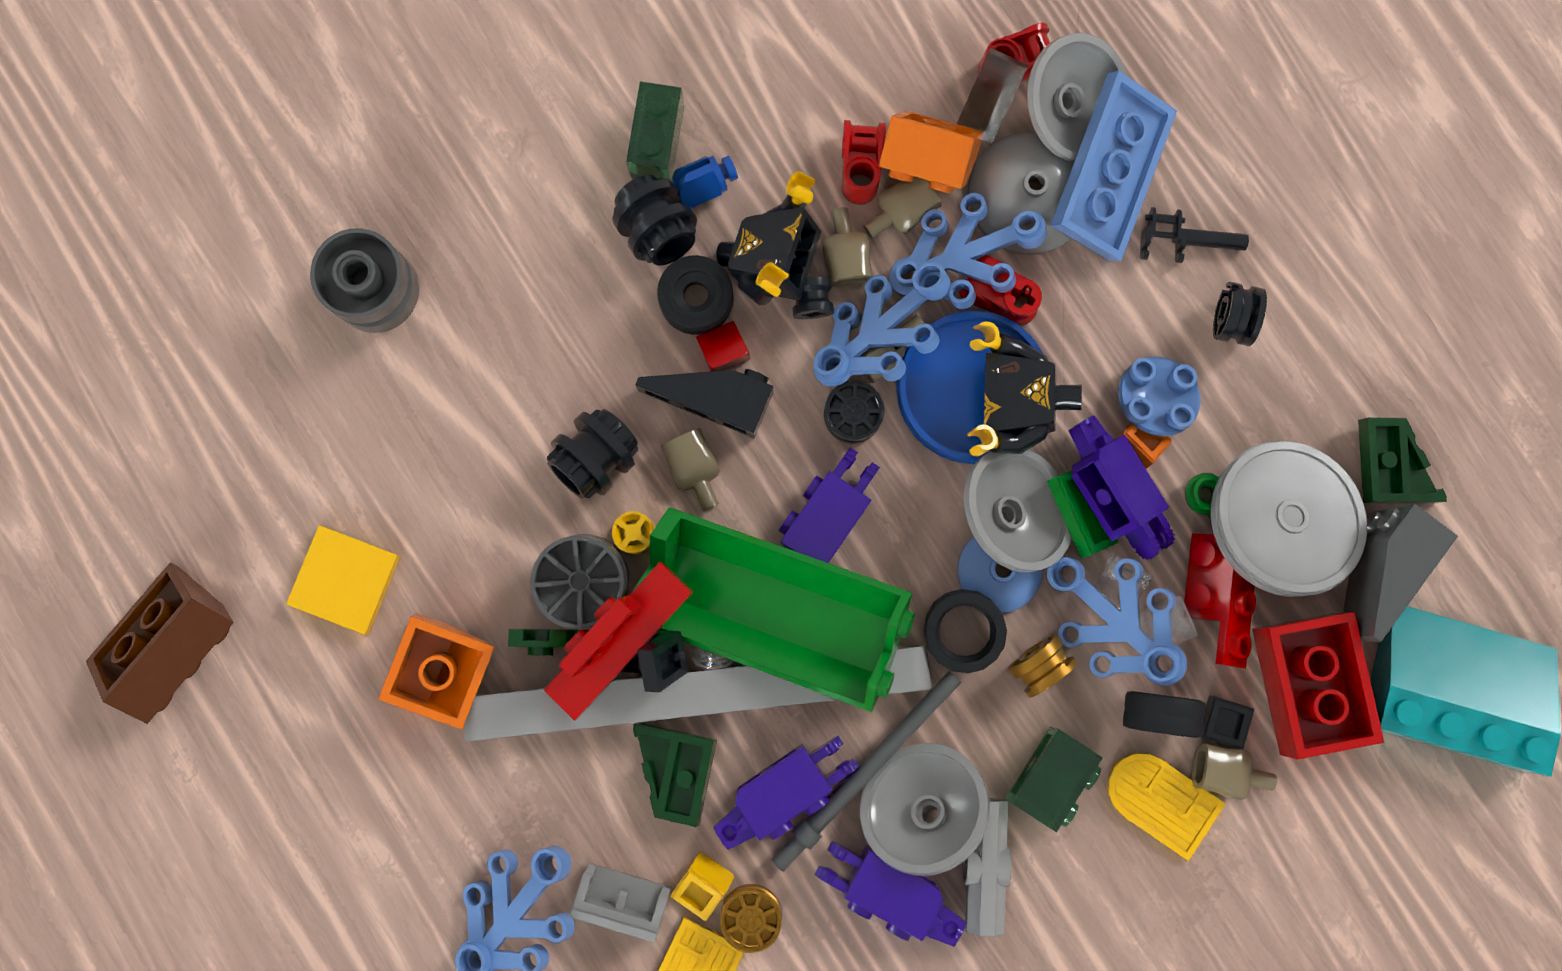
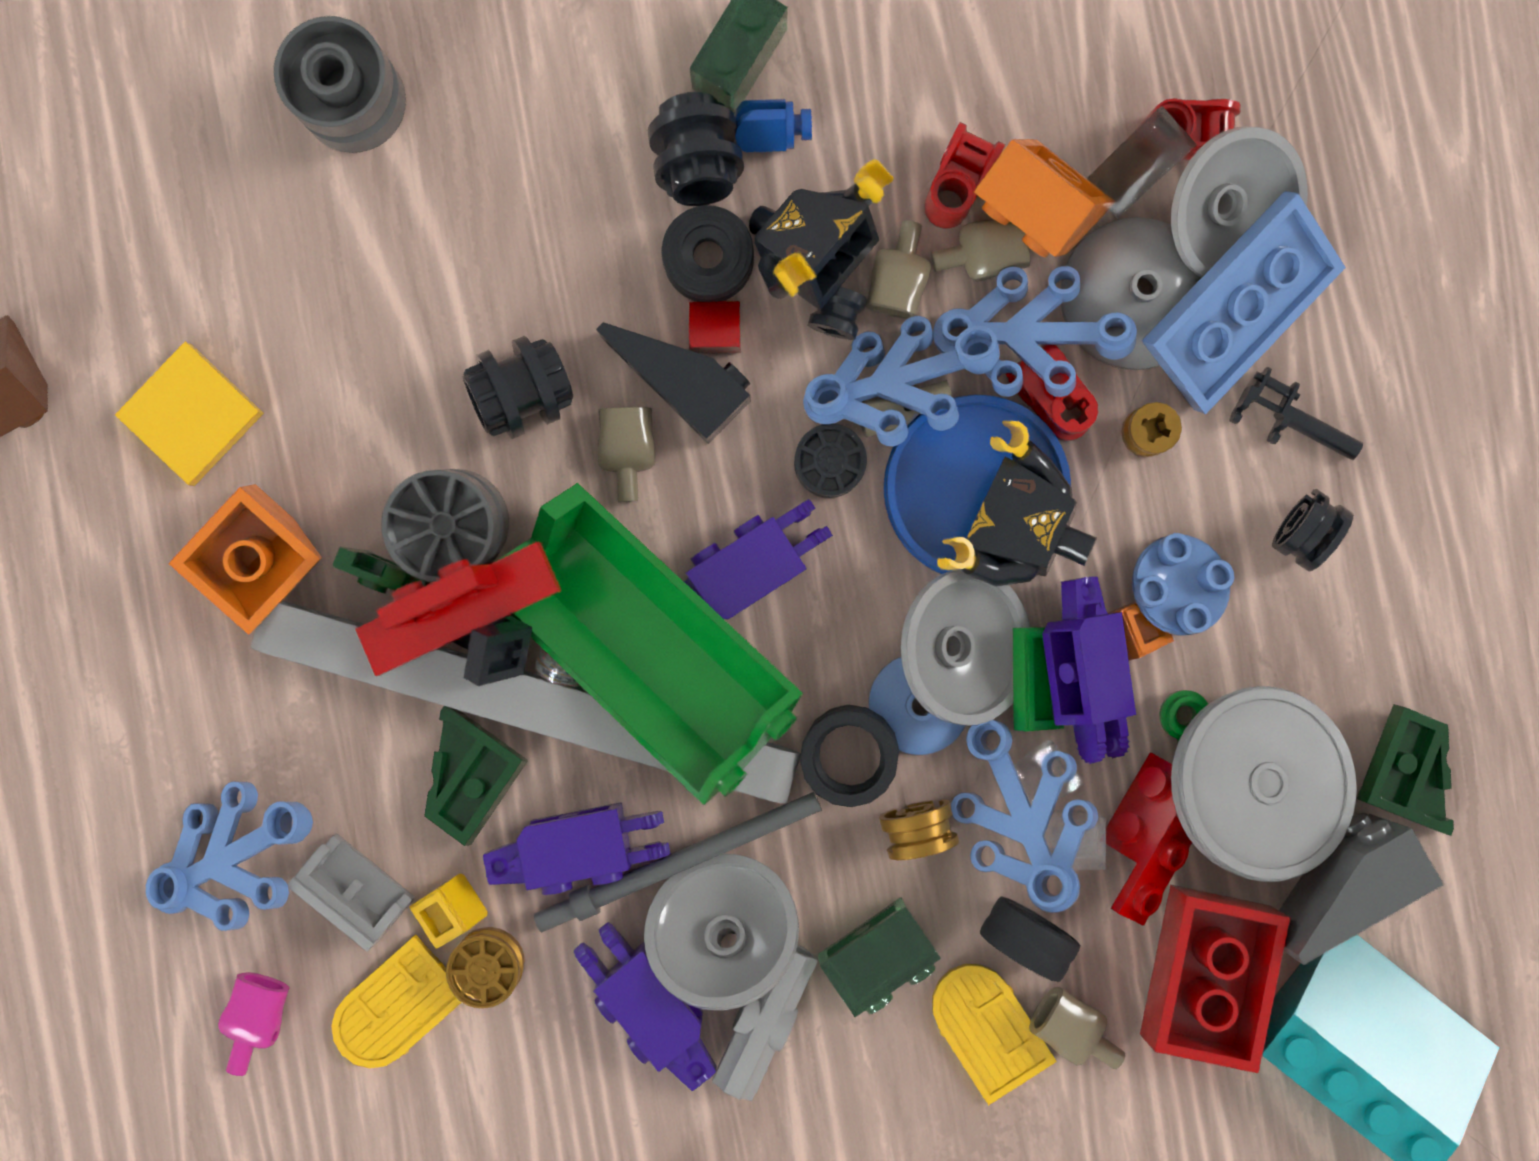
camera: 25 degrees right, 5 degrees up
(628, 528) = (523, 488): yellow wheel -> none
(1079, 295) = (1143, 437): none -> pearl gold wheel
(1227, 722) = (1096, 974): black tile -> none

